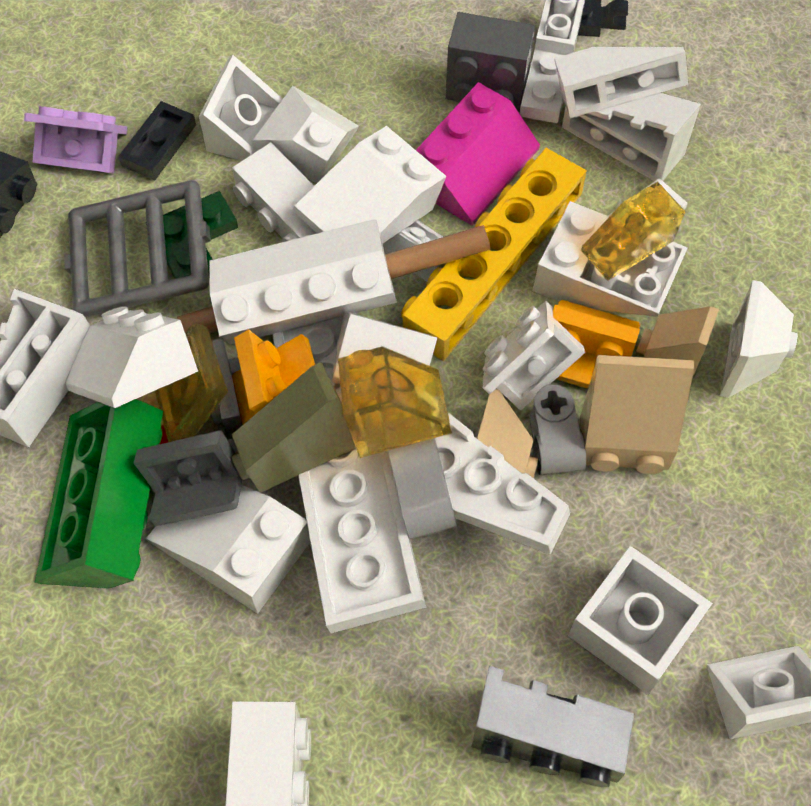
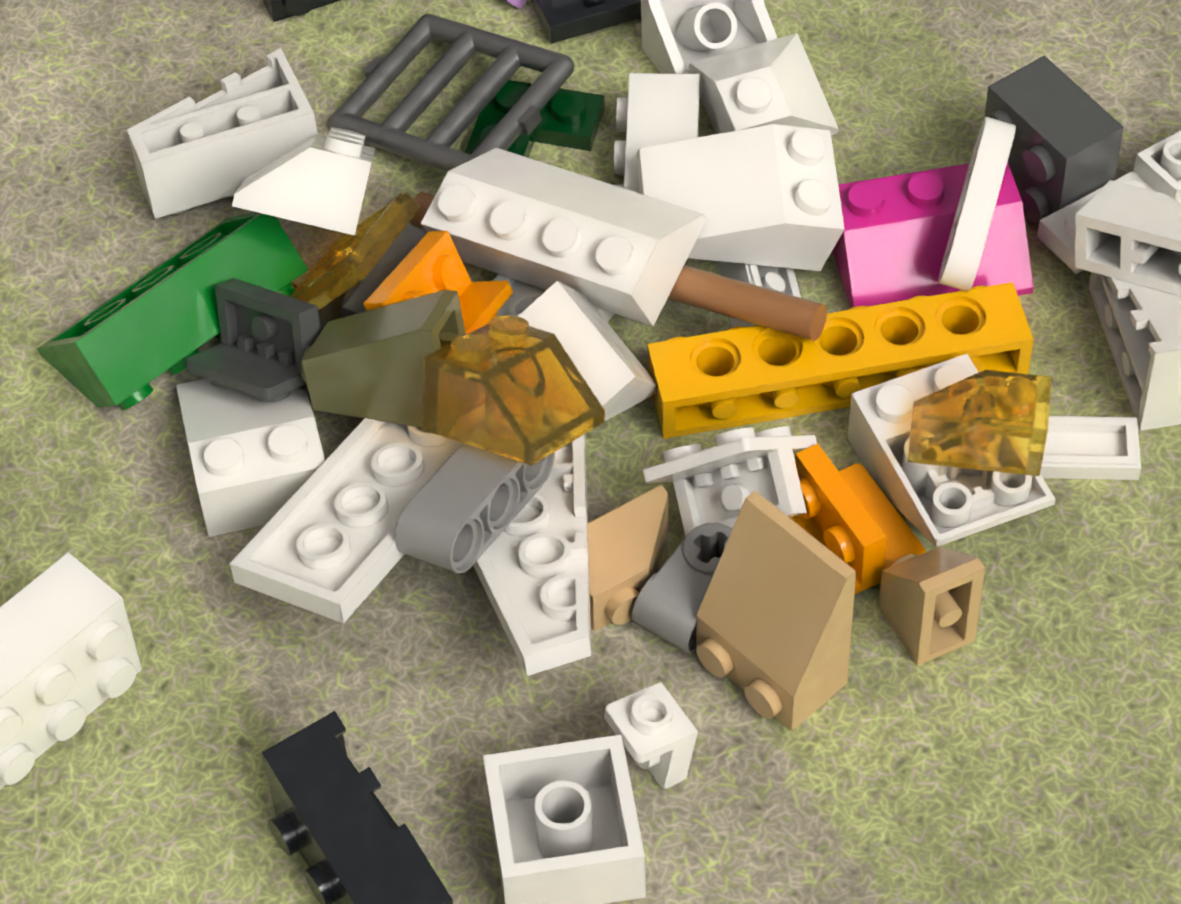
camera: 45 degrees right, 10 degrees down
(501, 115) = (977, 204): none -> white beam
(628, 526) = (654, 733): none -> white bracket
(757, 340) = (1028, 658): white slope -> none

